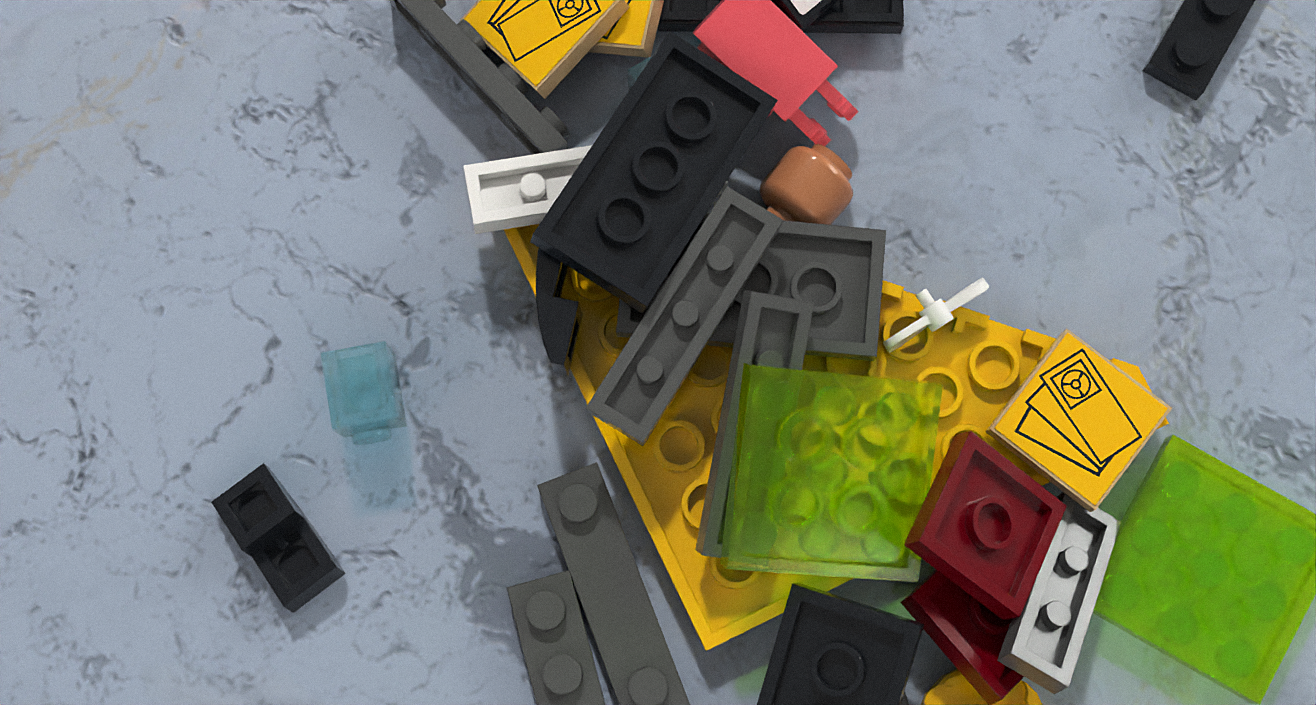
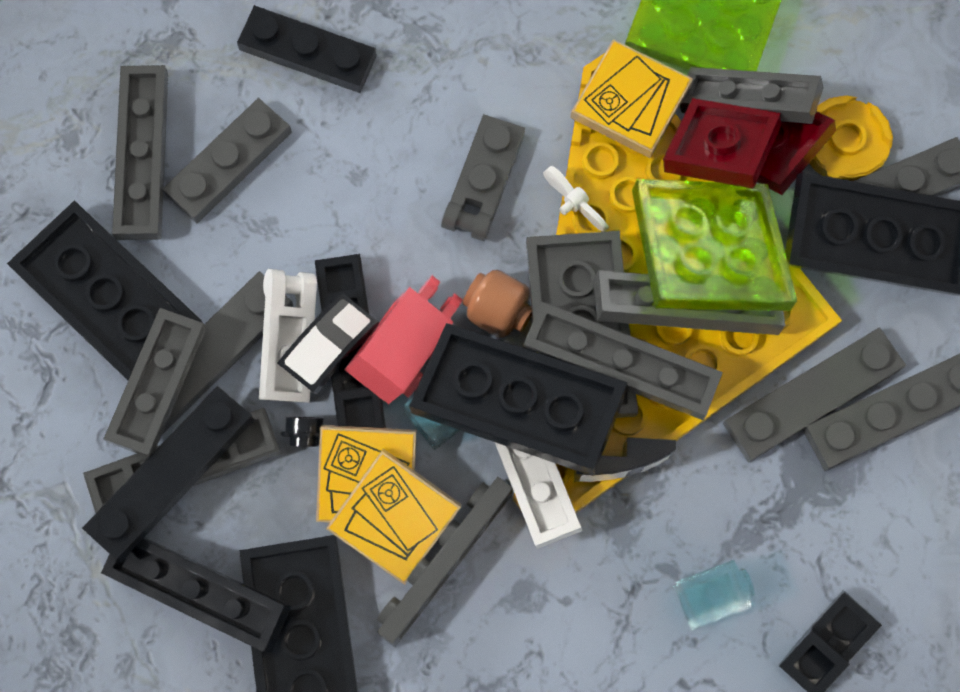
camera: 100 degrees left, 5 degrees down
(993, 209) = (484, 176): none -> dark grey plate

